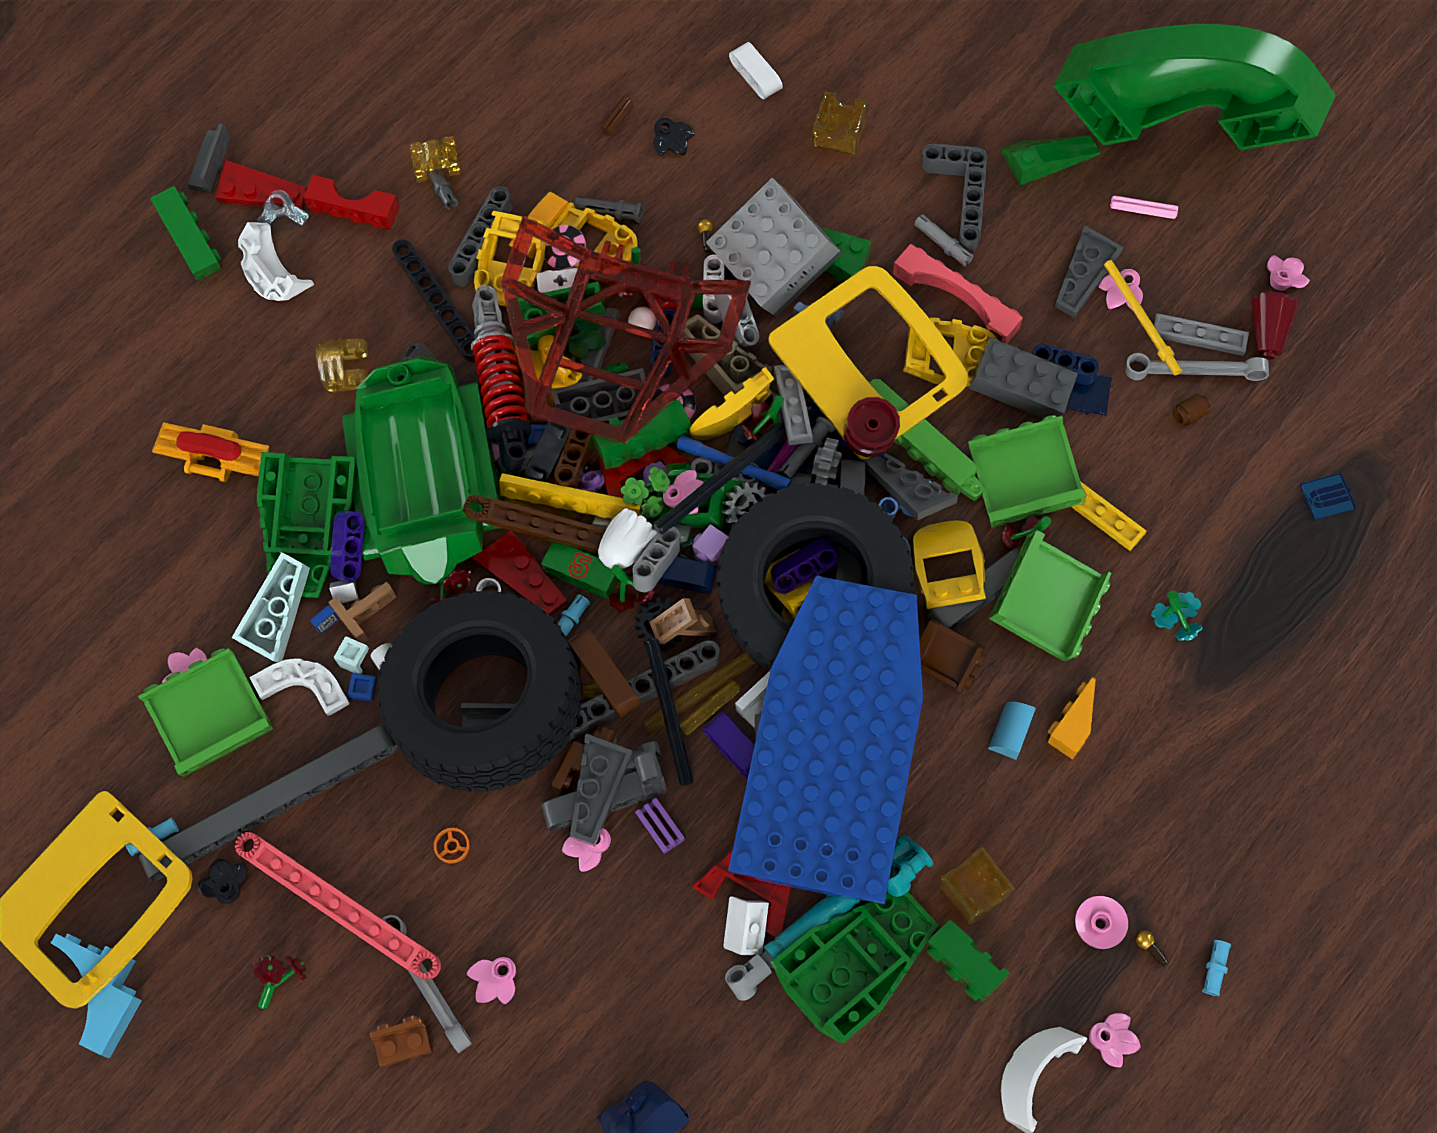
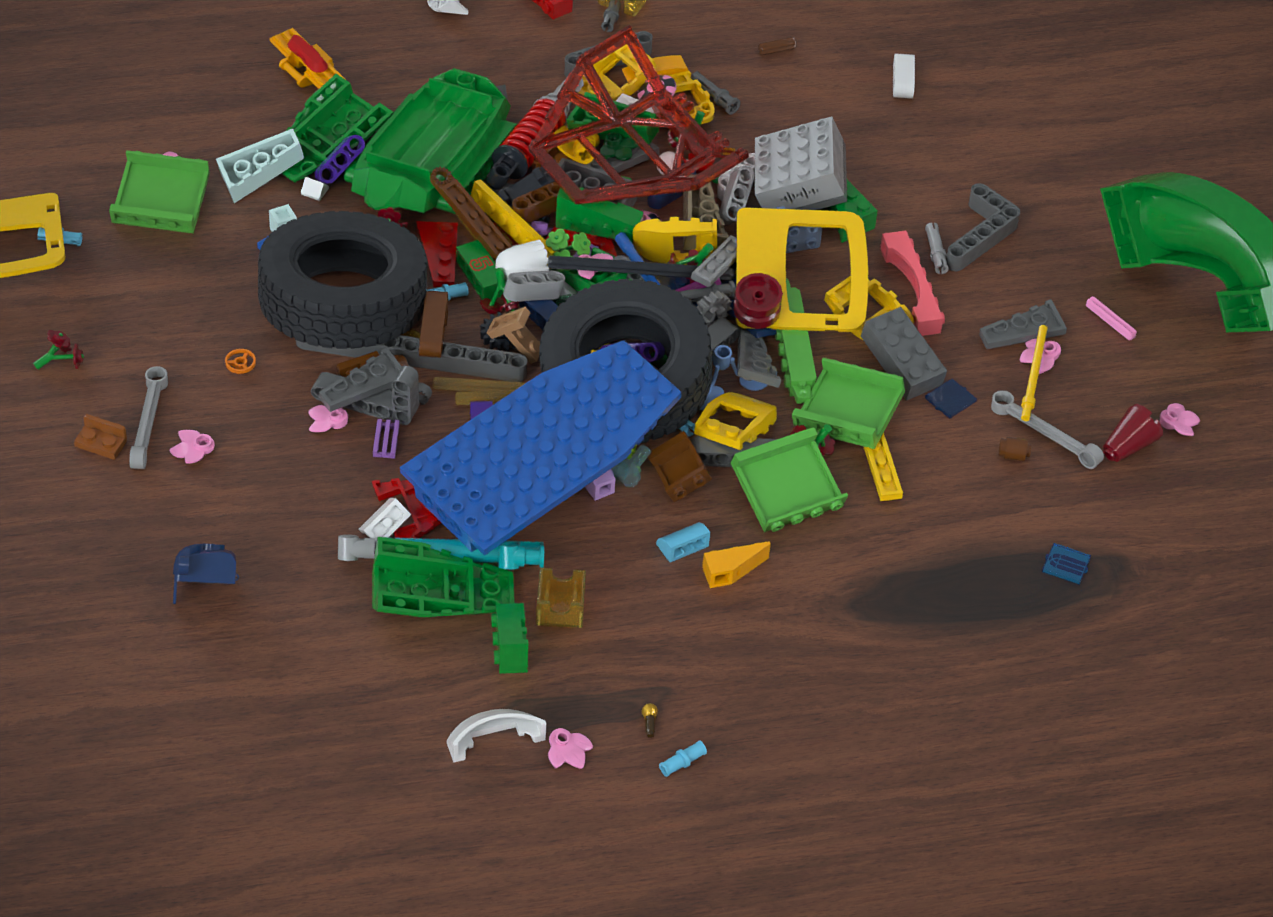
camera: 30 degrees right, 20 degrees down
(221, 878) = (79, 288): black plate -> none
(275, 798) = (157, 265): dark grey beam -> none
(302, 673) = (239, 211): white plate -> none
(324, 619) = (285, 193): blue tile -> none
(331, 359) = (435, 56): clear yellow piece -> none
(338, 906) = (136, 341): coral plate -> none
(363, 609) = (316, 203): medium nougat bracket -> none
(429, 292) = (540, 66): black beam -> none
(669, 712) = (455, 376): black axle -> none
(672, 139) = (803, 80): black plate -> none
(839, 125) = (927, 137): clear yellow piece -> none
(1042, 157) = (1066, 247): green wedge -> none
(1075, 361) = (957, 373): dark blue beam -> none
(1110, 913) = (628, 672): bright pink dish -> none
(1185, 606) = (866, 548): teal plant -> none
(1201, 334) = (1072, 414): light grey tile -> none

